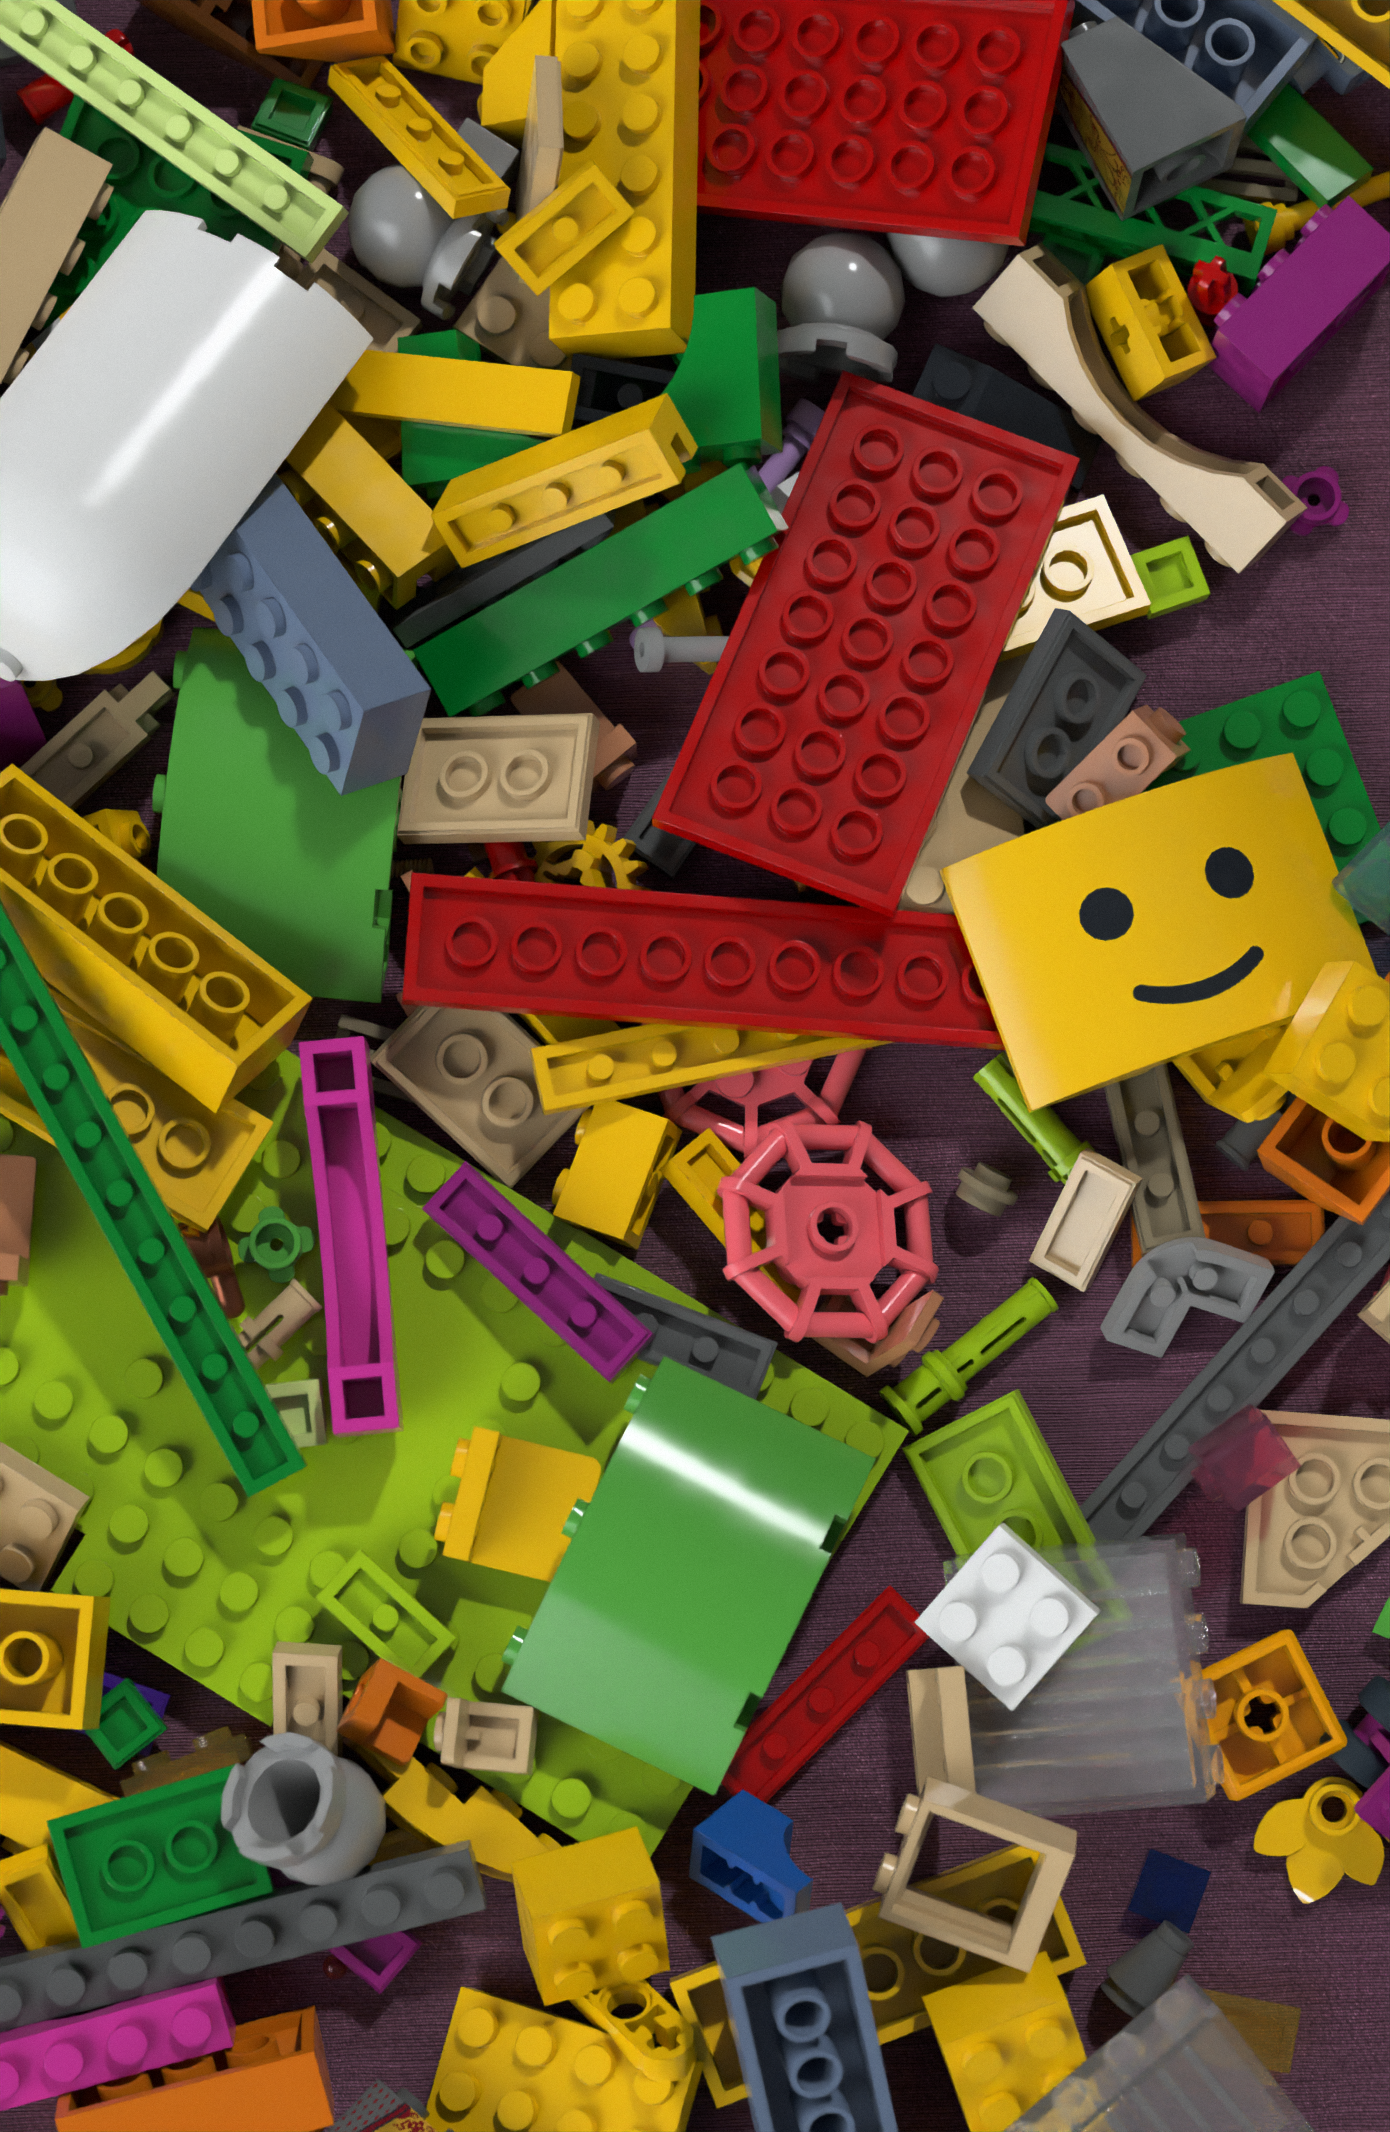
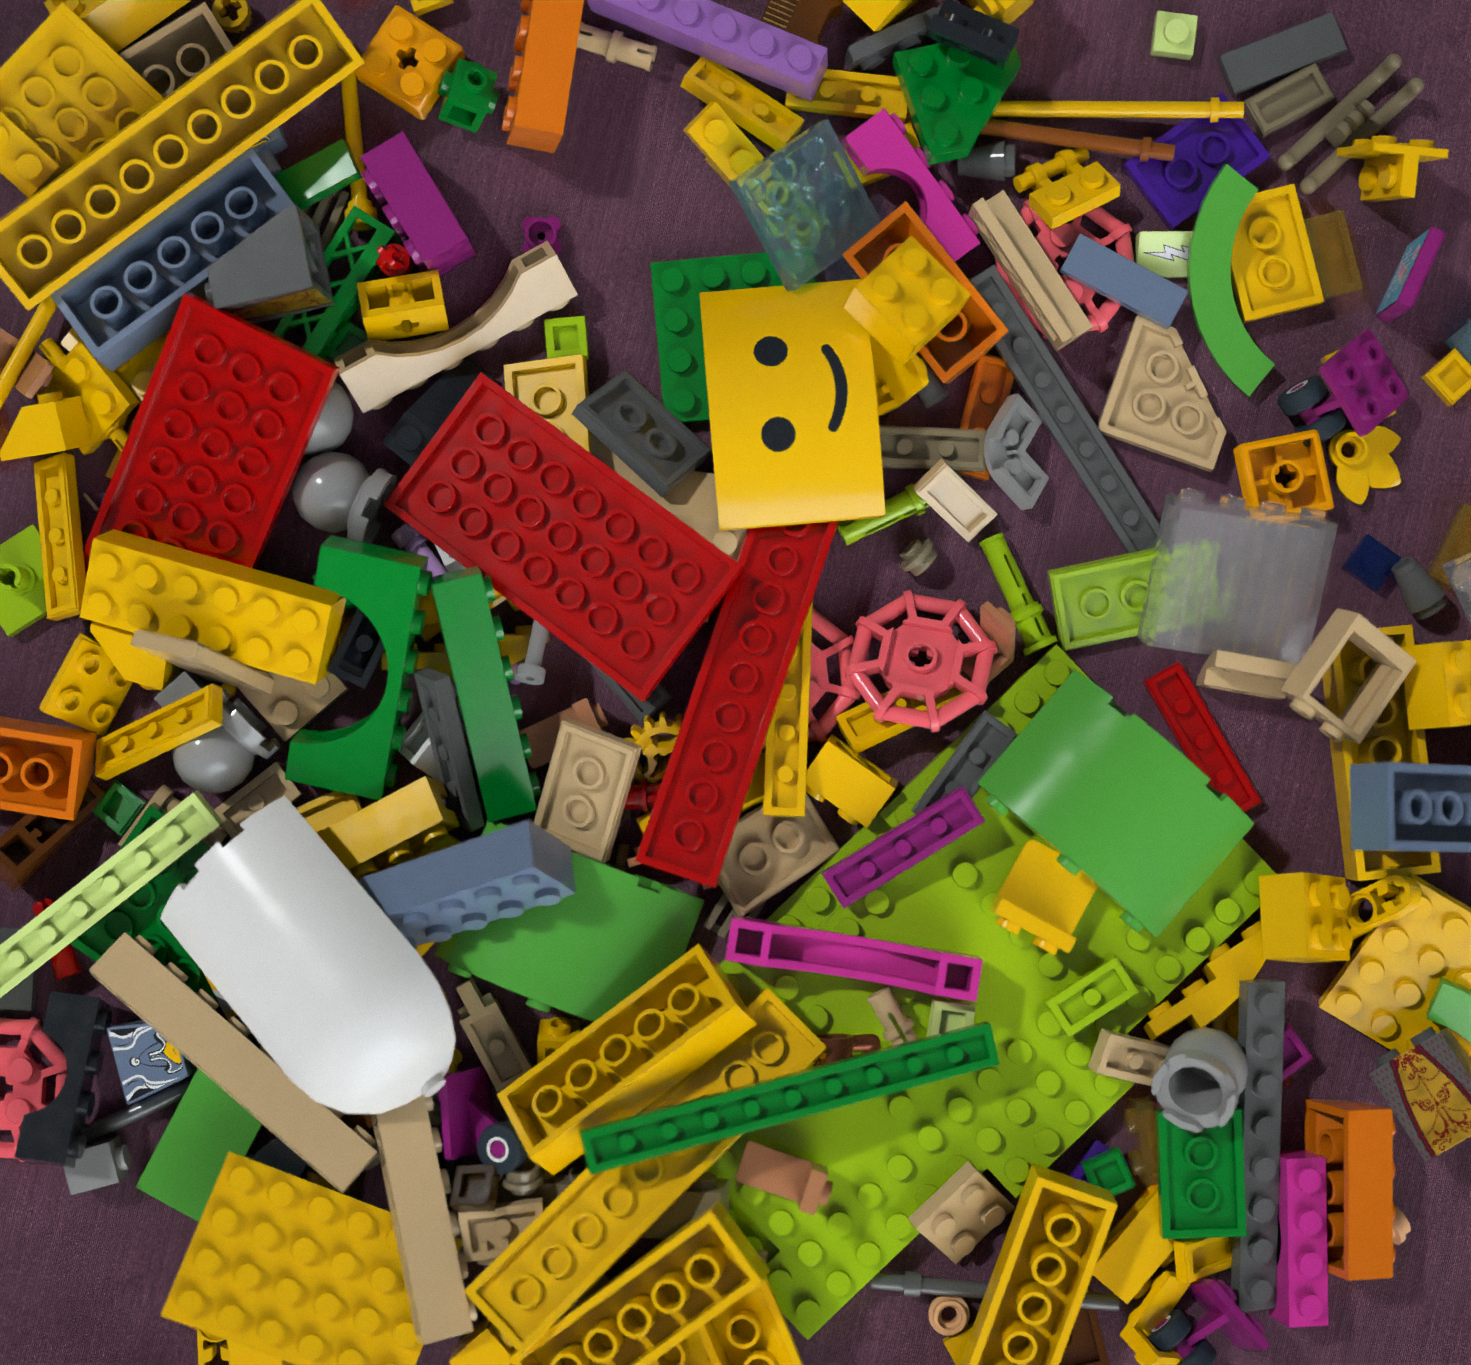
camera: 70 degrees left, 5 degrees up
(274, 1226) = (841, 992): bright green plate -> none
(390, 1711) = (1151, 1010): orange panel -> none
(459, 393) = (334, 748): yellow tile -> none
(487, 1736) = (1181, 953): tan bracket -> none
(564, 227) = (248, 655): yellow plate -> none
(564, 481) = (412, 698): yellow brick -> none
(747, 1859) = (1294, 814): blue arch -> none
(1007, 1616) = (1192, 614): white plate -> none
(1122, 763) = (683, 400): nougat bracket -> none
(1241, 1459) = (1130, 445): clear pink brick -> none

